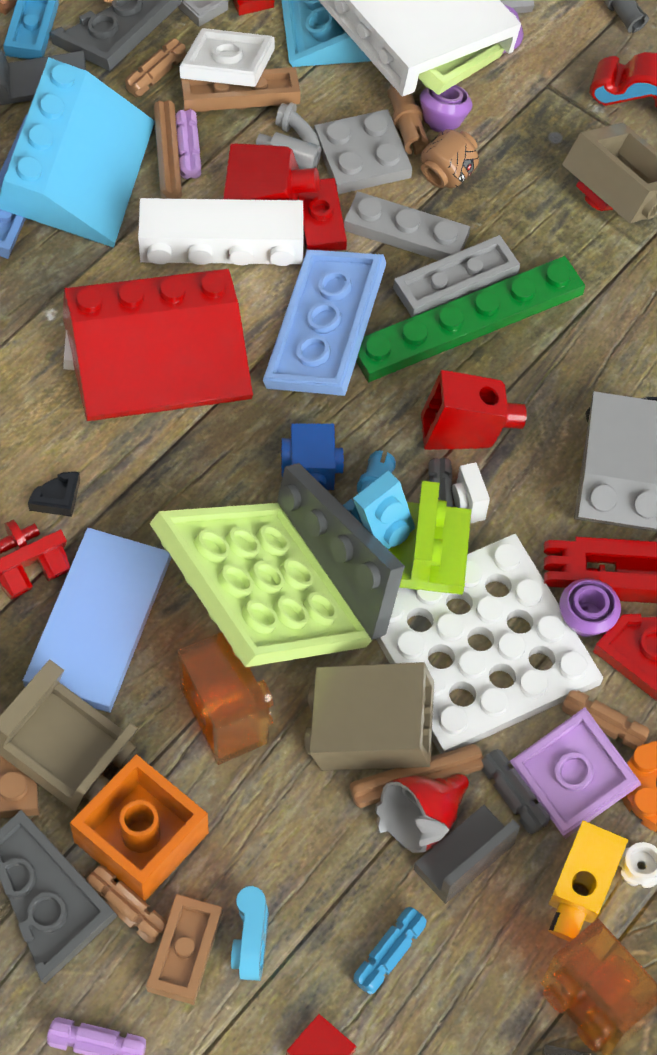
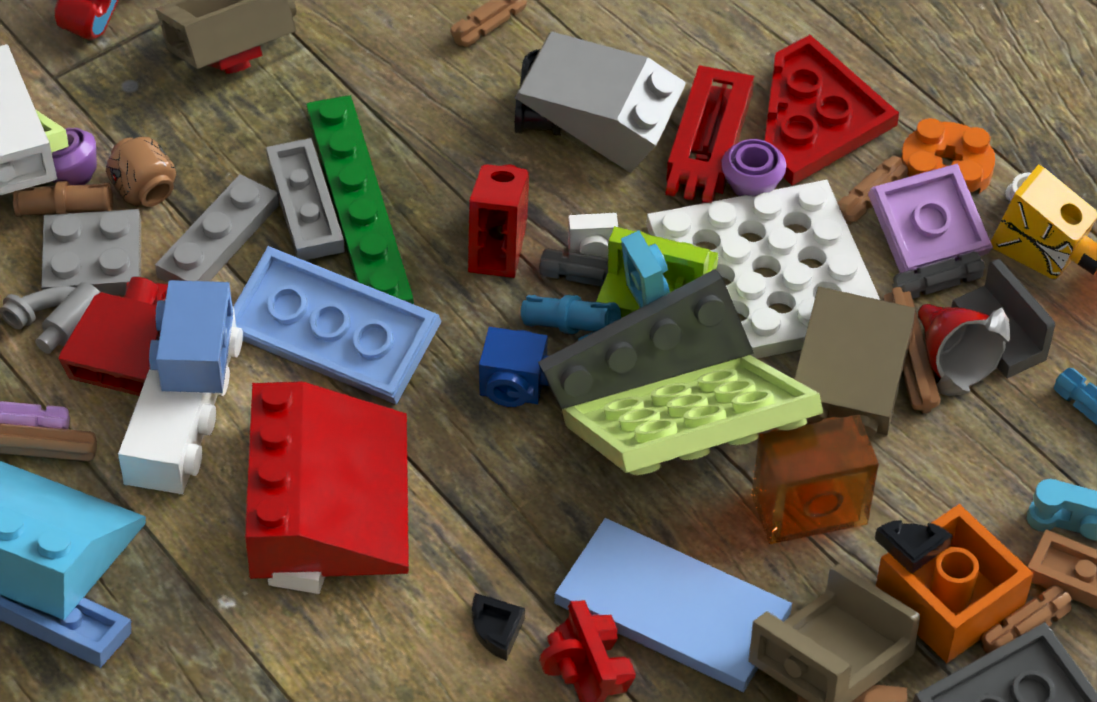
camera: 75 degrees left, 10 degrees down
(149, 775) = (913, 543): none -> black tile
(250, 213) = (193, 336): none -> medium blue brick

